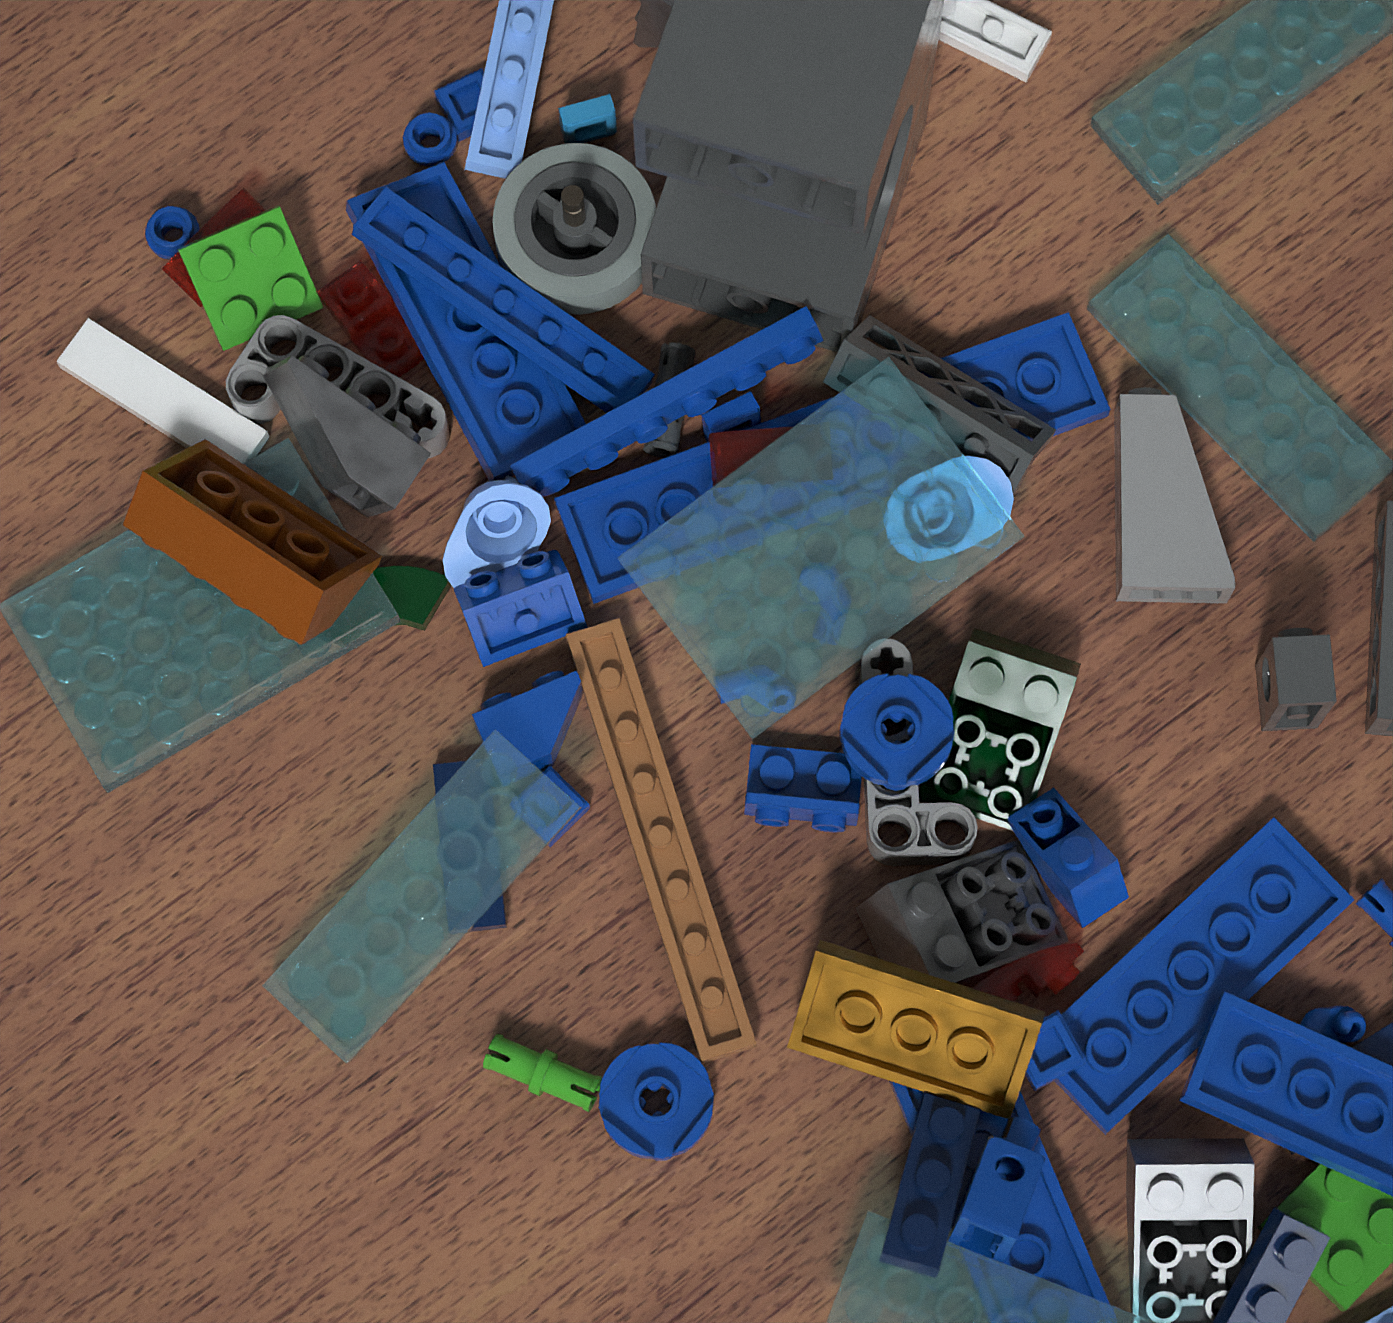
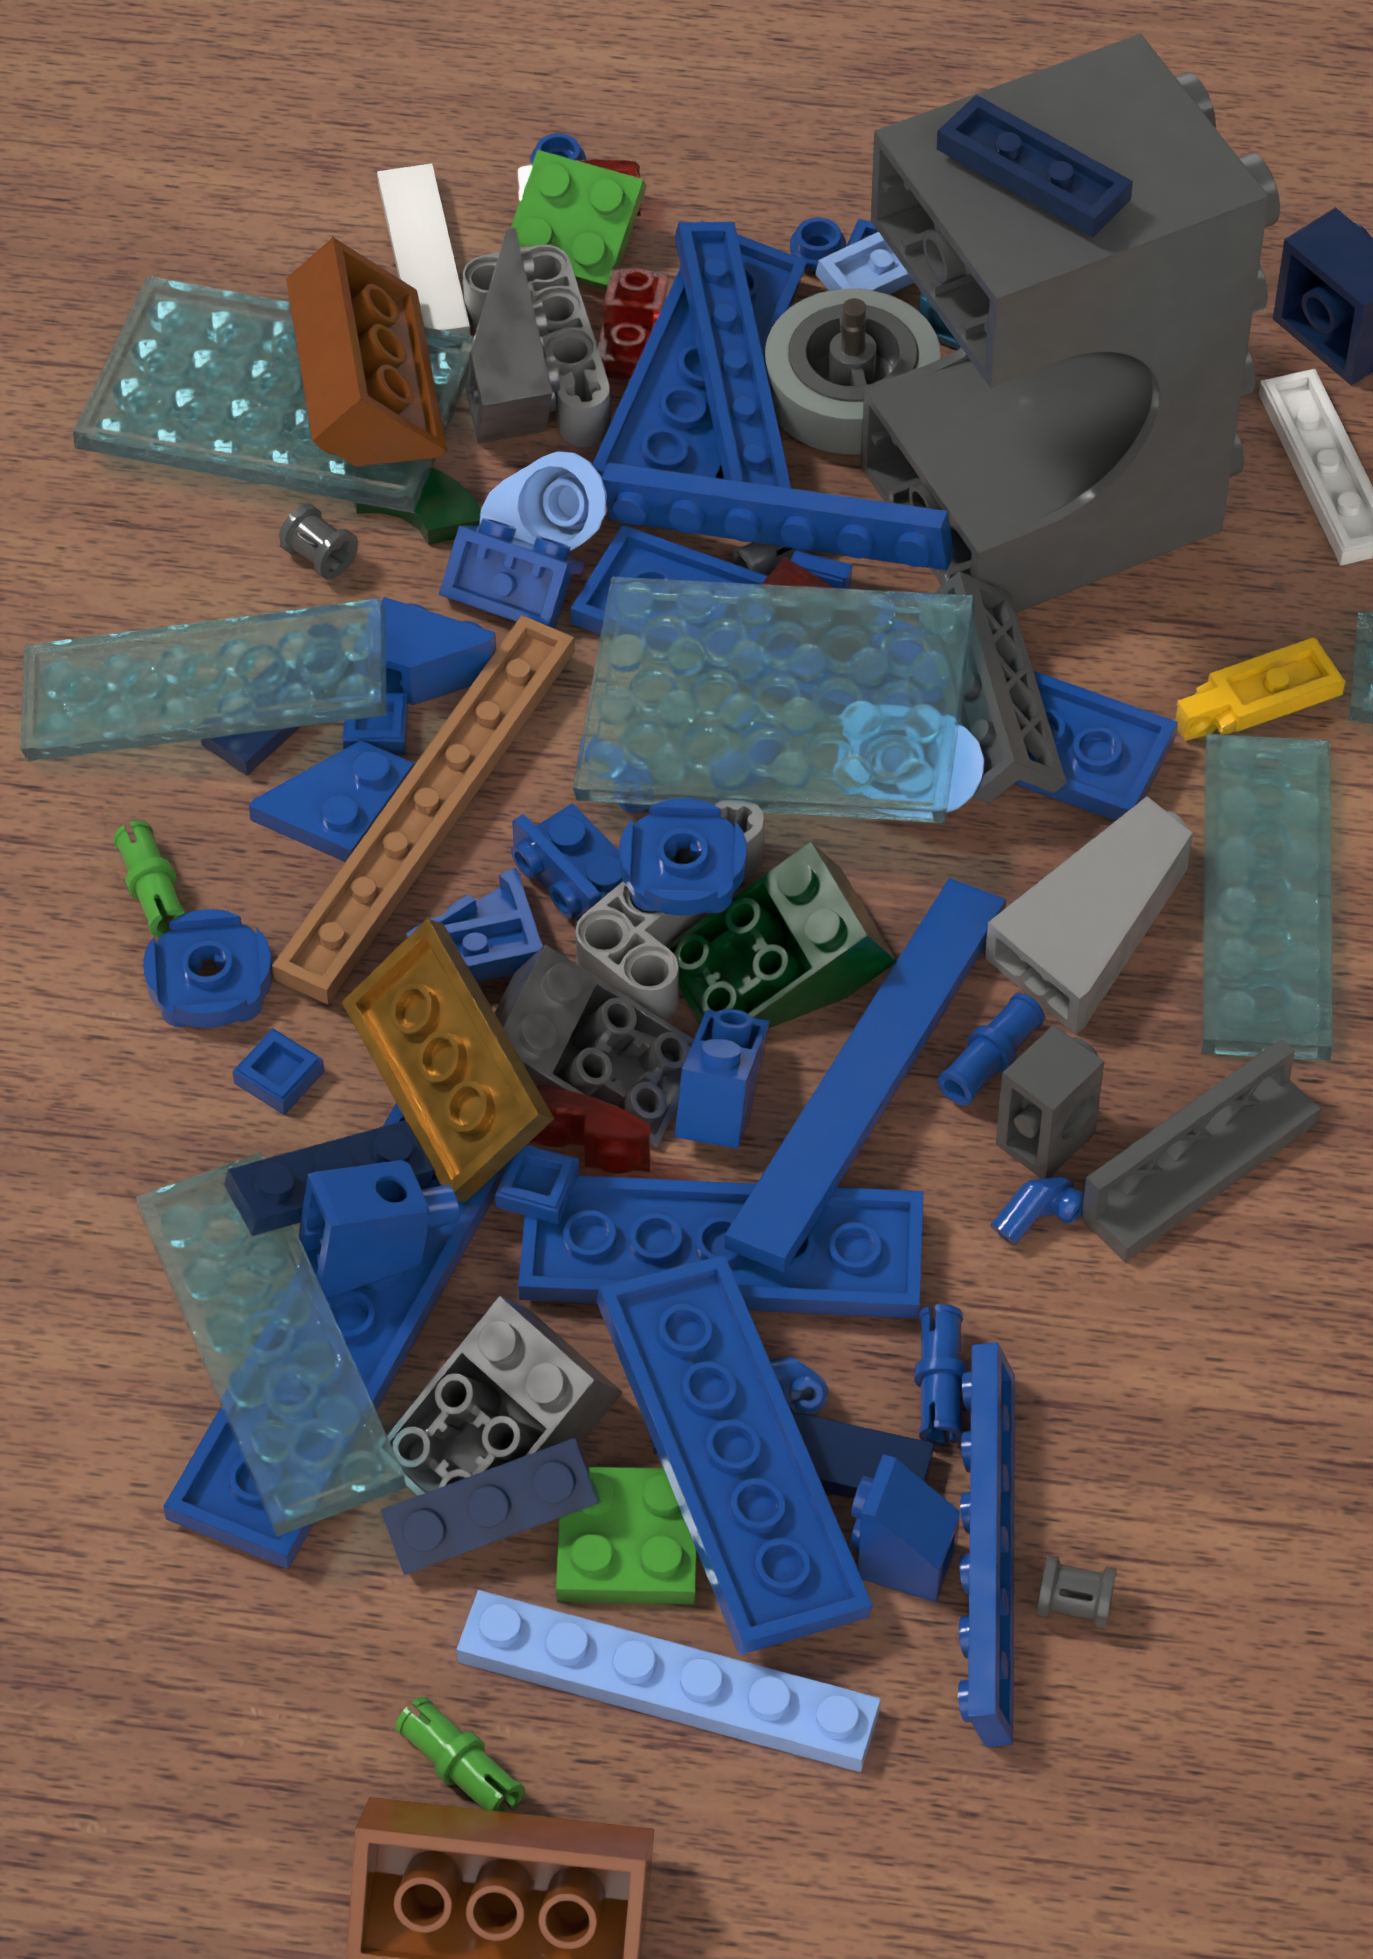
camera: 45 degrees right, 20 degrees down
(360, 705) = (318, 541): none -> dark grey bush
(592, 889) = (334, 800): none -> blue wing
(778, 1126) = (278, 1071): none -> blue tile
(788, 55) = (1034, 165): none -> dark blue plate
(802, 902) = (495, 931): none -> blue wing
(1088, 233) = (1260, 690): none -> yellow hinge
(1153, 766) = (863, 1077): none -> blue tile
(1200, 669) = (991, 1049): none -> blue pin
(1338, 758) = (1036, 1200): none -> blue arm

